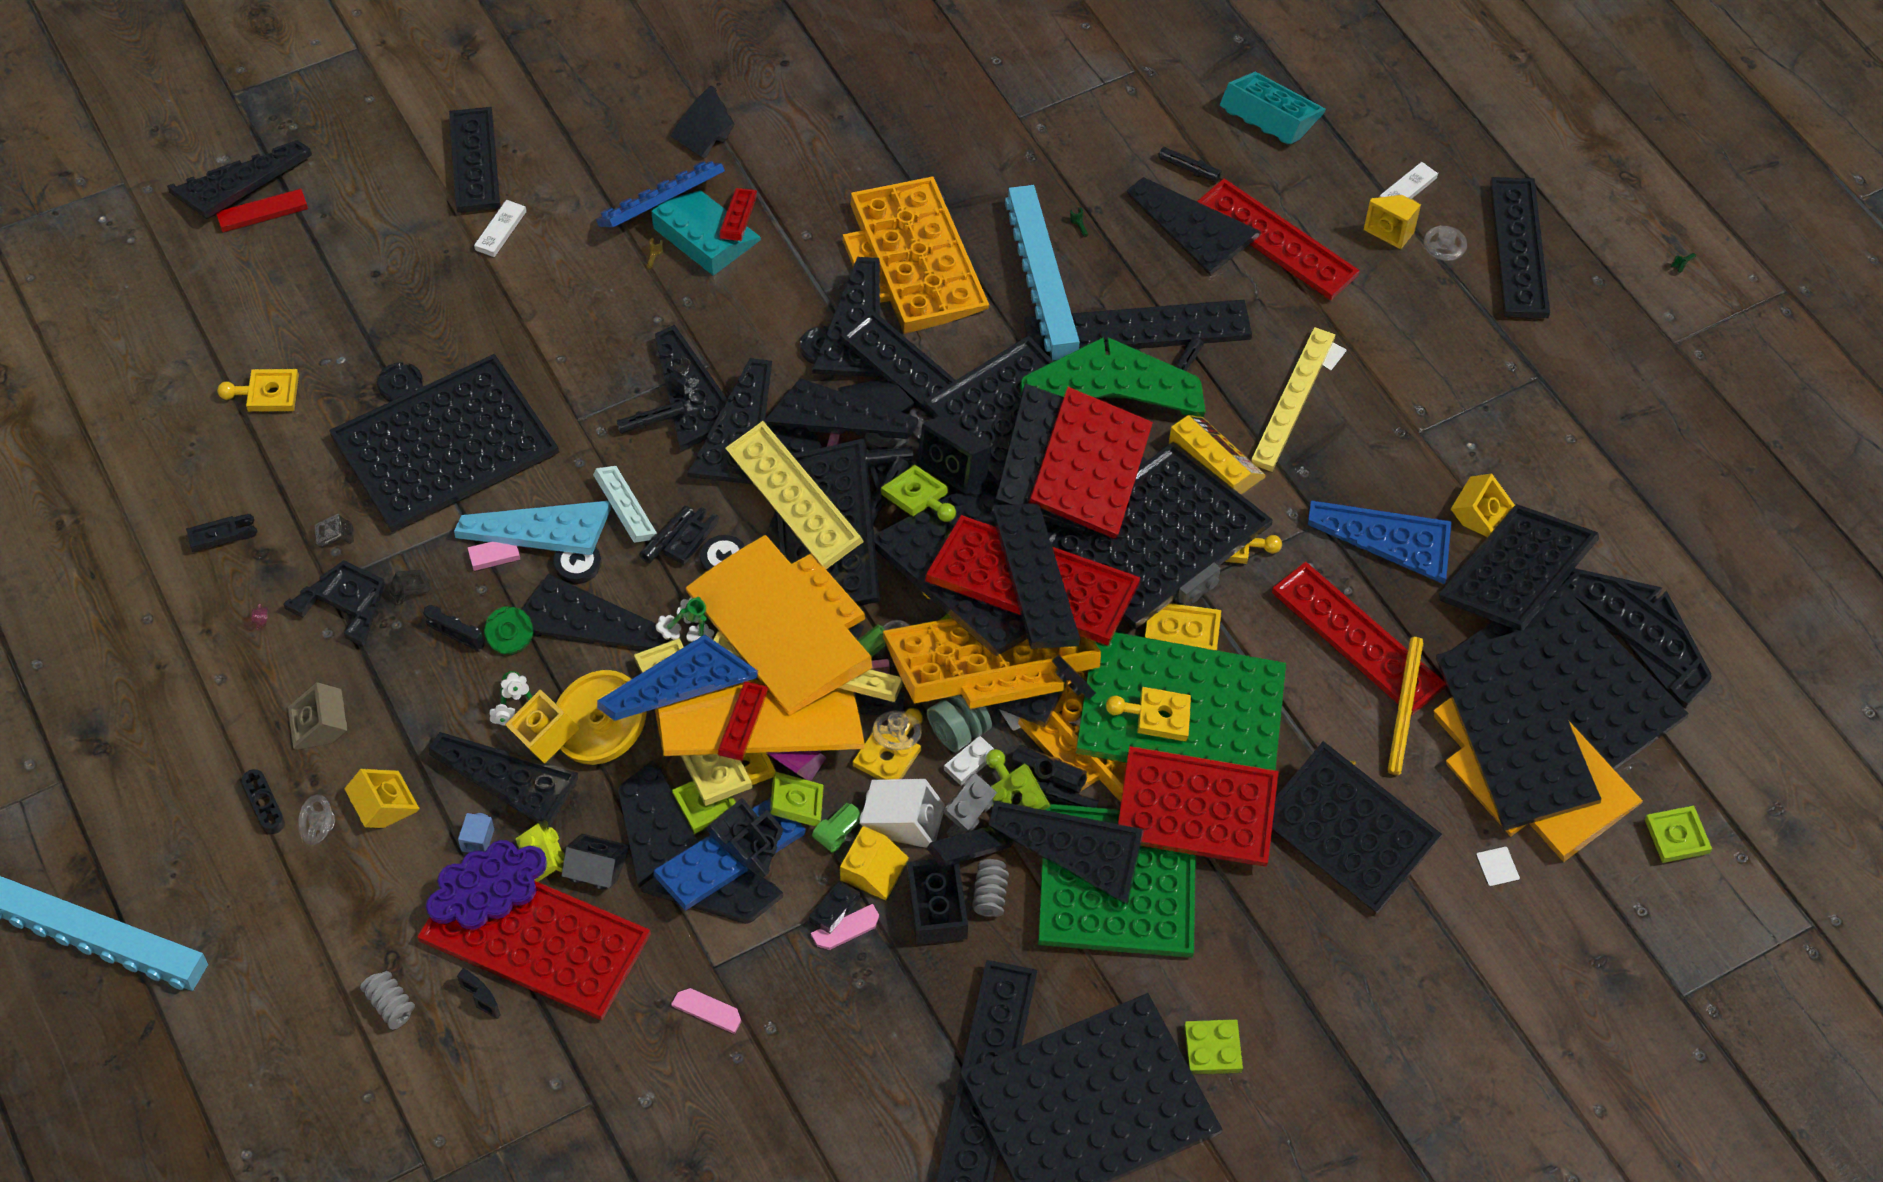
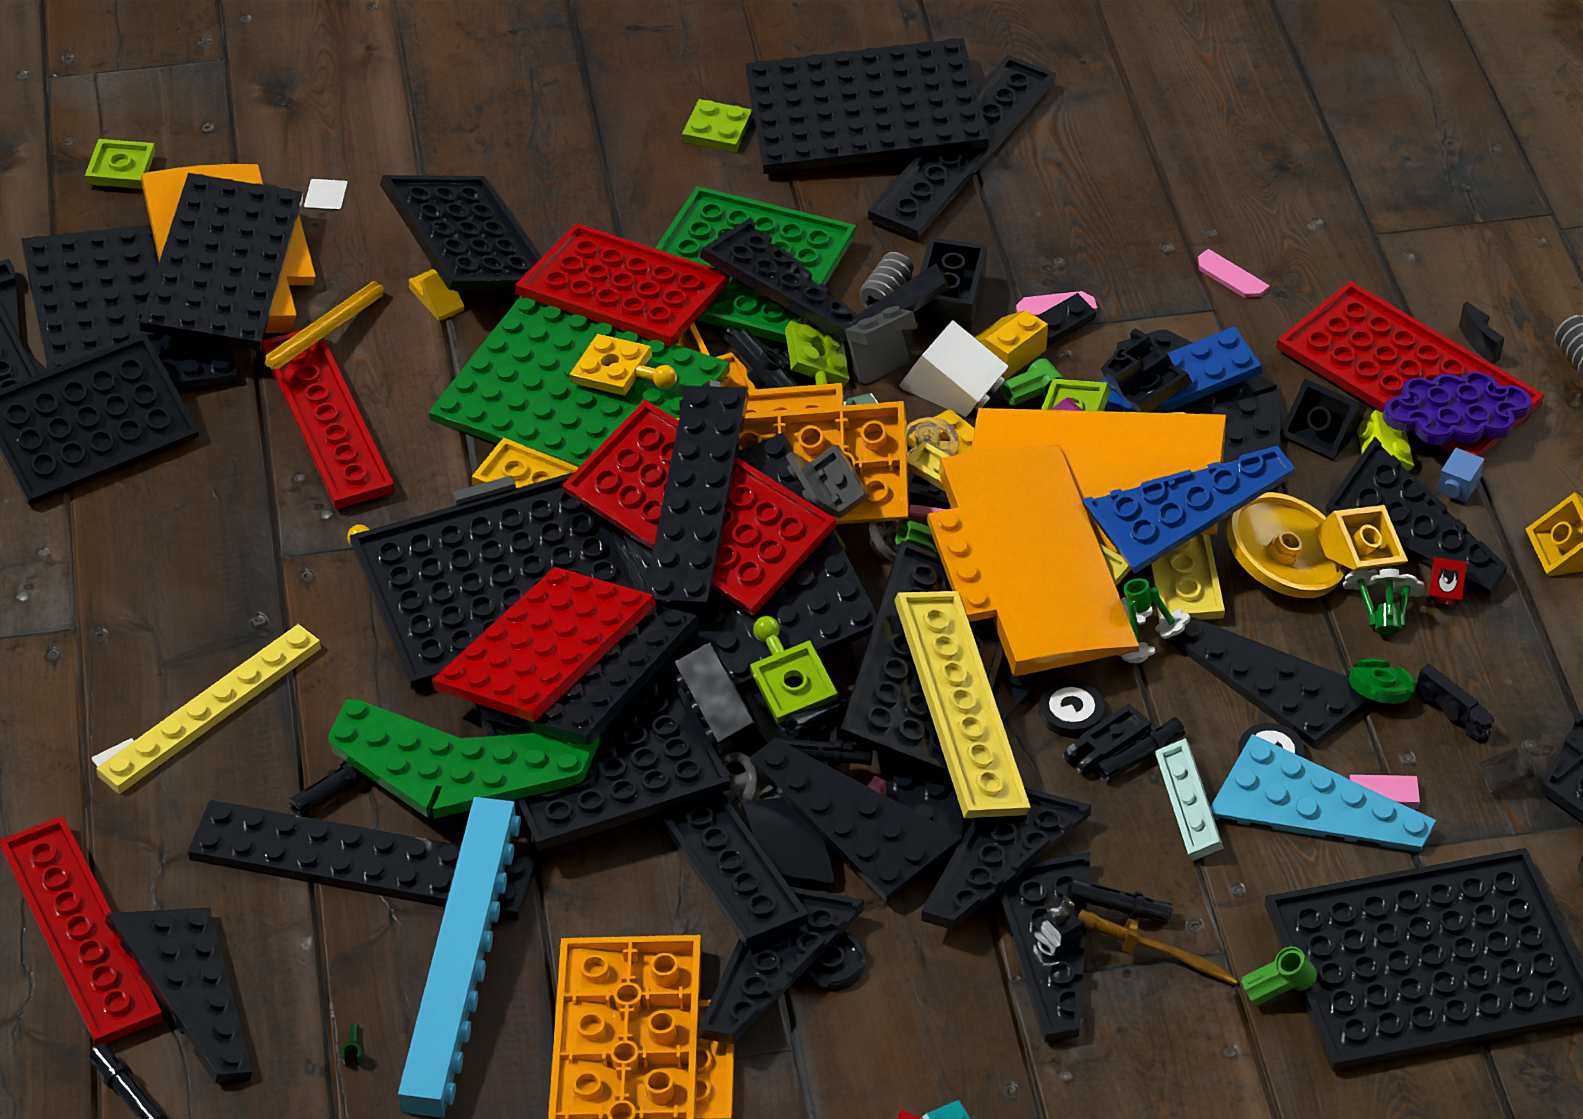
camera: 160 degrees left, 10 degrees down
(399, 380) = (1485, 1075): black tile -> none
(472, 723) = (1447, 580): none -> red brick
(533, 390) = (1279, 976): none -> bright green piece
(639, 397) = (1131, 937): none -> pearl gold sword
(743, 721) = (1118, 441): red tile -> none
(951, 615) = (828, 481): none -> dark grey bracket
(1215, 453) = (362, 651): yellow slope -> none
(1400, 538) = (206, 506): blue wing -> none
(1482, 504) = (72, 508): yellow slope -> none

